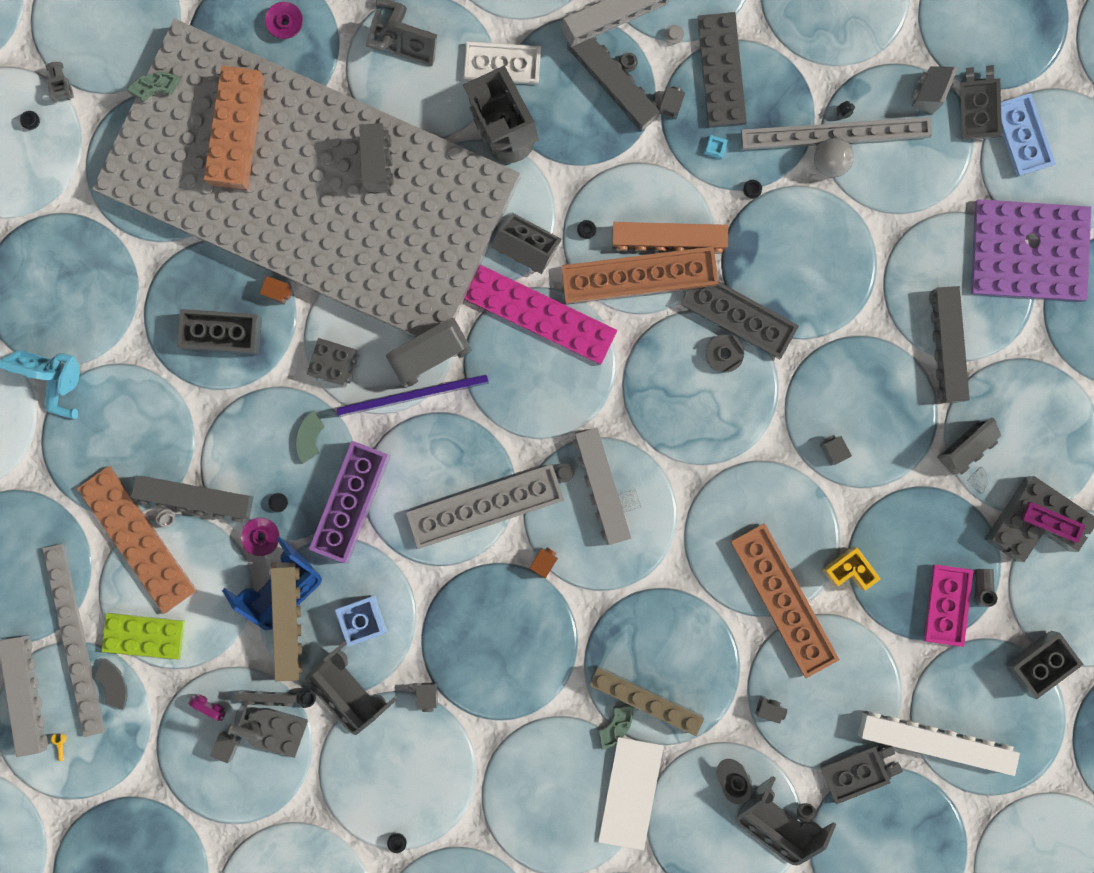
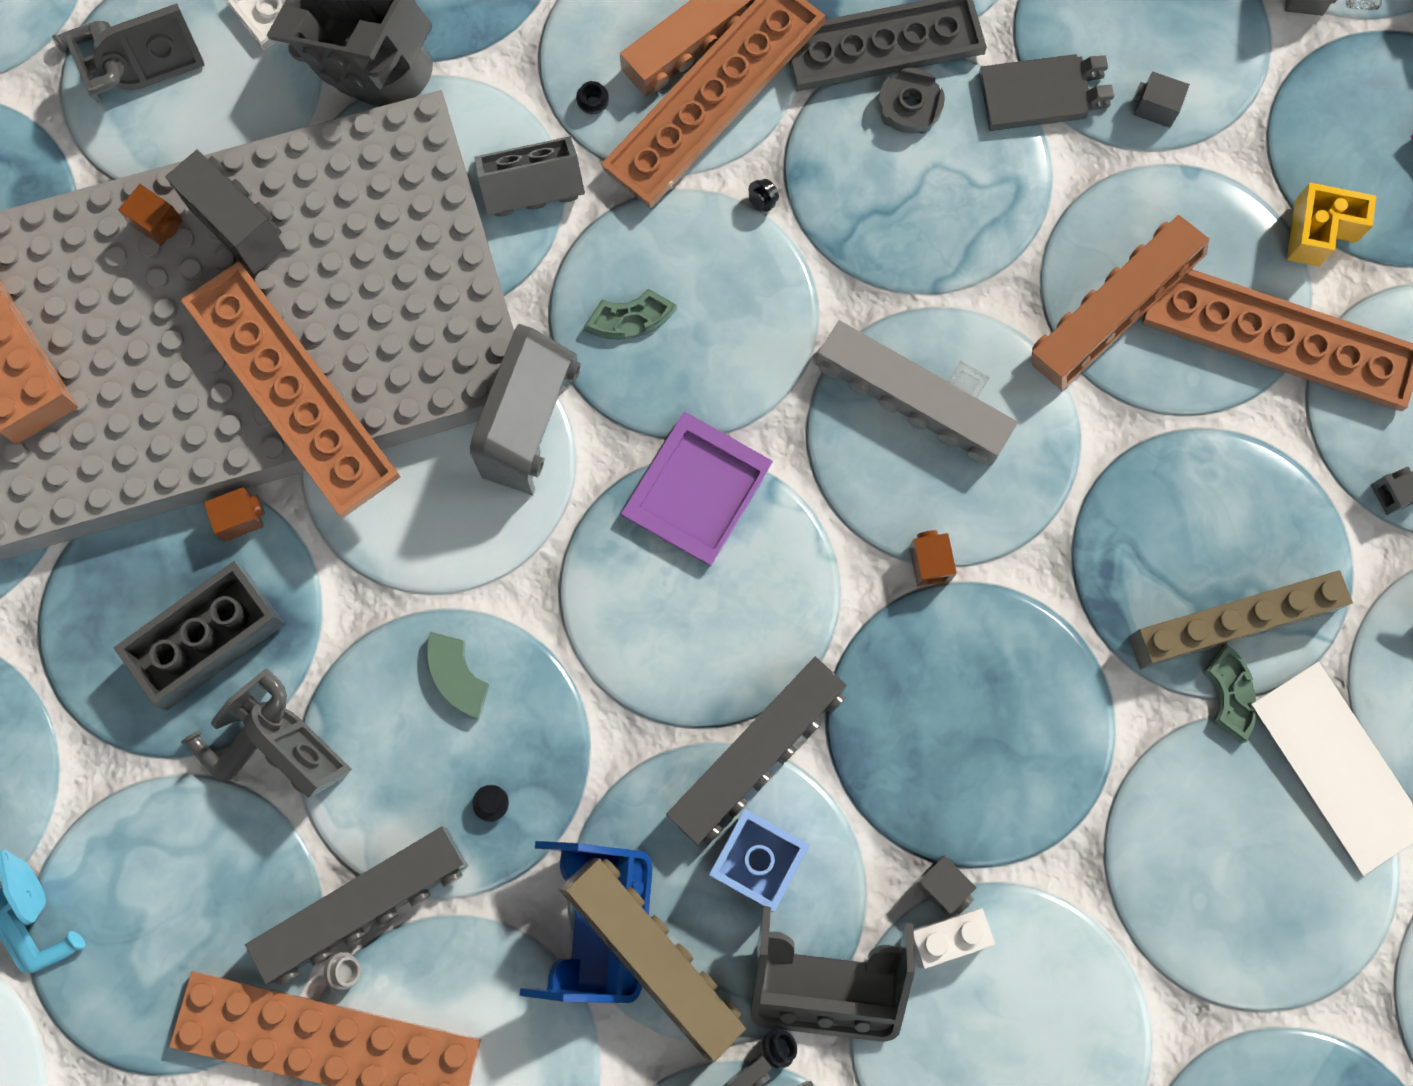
camera: 45 degrees left, 10 degrees down
(216, 403) = (276, 733): none -> dark grey plate
(250, 536) = (488, 870): magenta dish -> none
(332, 362) = (401, 543): dark grey brick -> none
(339, 259) = (291, 389): none -> nougat plate
(344, 129) = (150, 215): none -> dark orange brick
(349, 502) = (593, 709): medium lavender brick -> none
(400, 576) = (756, 751): none -> dark grey brick
(409, 717) = (952, 938): none -> white brick
(412, 395) = (551, 494): dark purple tile -> none
(475, 446) = (697, 488): none -> medium lavender piece
(485, 506) = (783, 557): light grey plate -> none
(513, 346) = (630, 318): none -> sand green tile
(540, 314) = (629, 250): dark pink plate -> none
(564, 472) = (848, 421): dark grey plate -> none
(619, 340) = (763, 194): none -> black plate
(725, 525) = (1119, 302): none -> nougat brick
(788, 399) = (1043, 90): none -> dark grey tile

